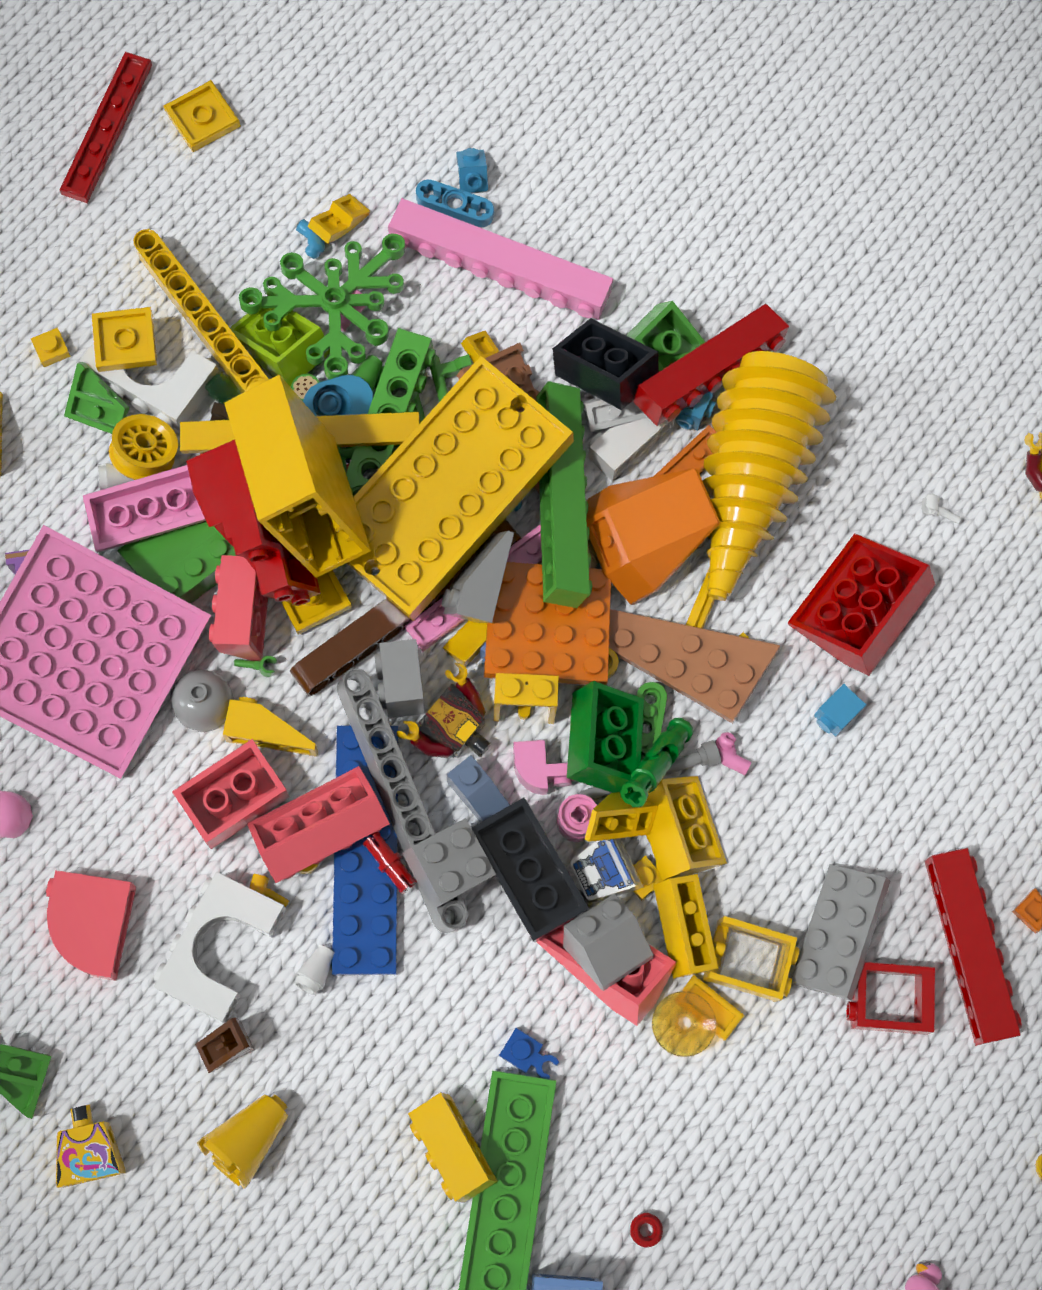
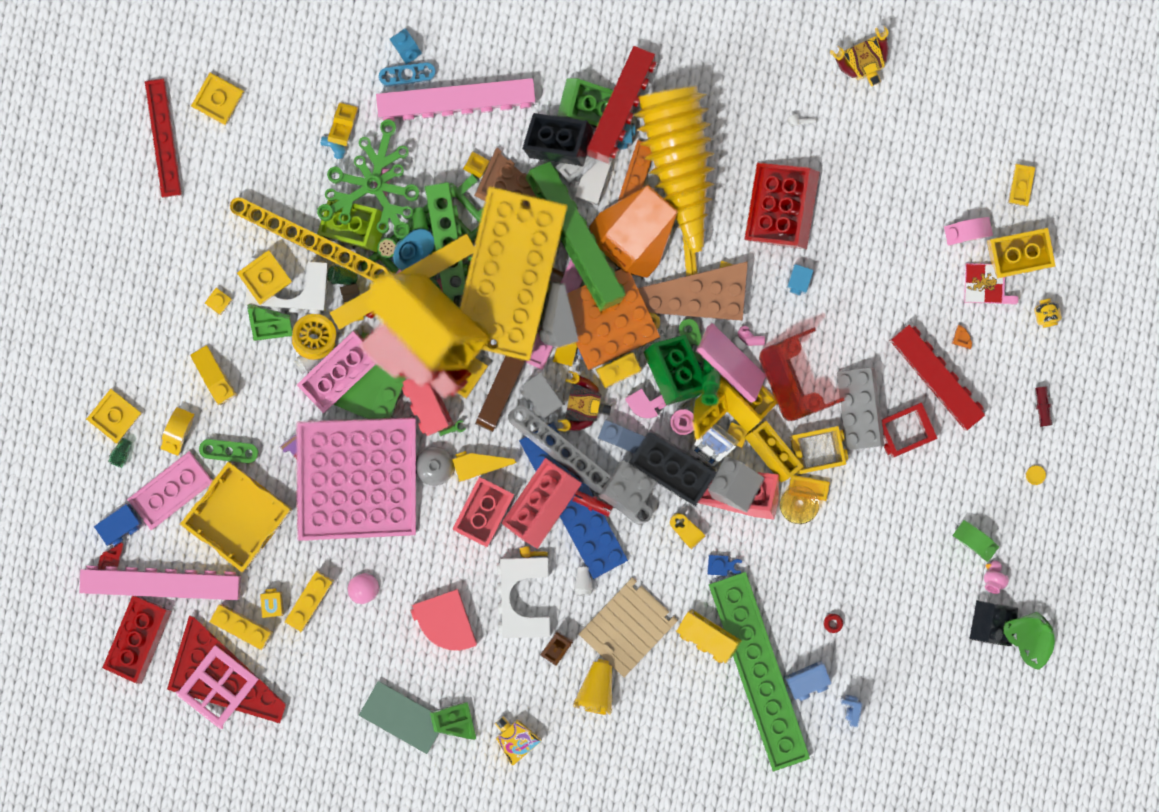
camera: 20 degrees left, 15 degrees up
(345, 1073) = (629, 627): none -> tan door
(505, 979) = (688, 532): none -> yellow piece
(688, 768) = (731, 362): none -> bright pink tile
(750, 835) = (785, 383): none -> clear red windscreen
(922, 1217) = (976, 540): none -> bright green brick

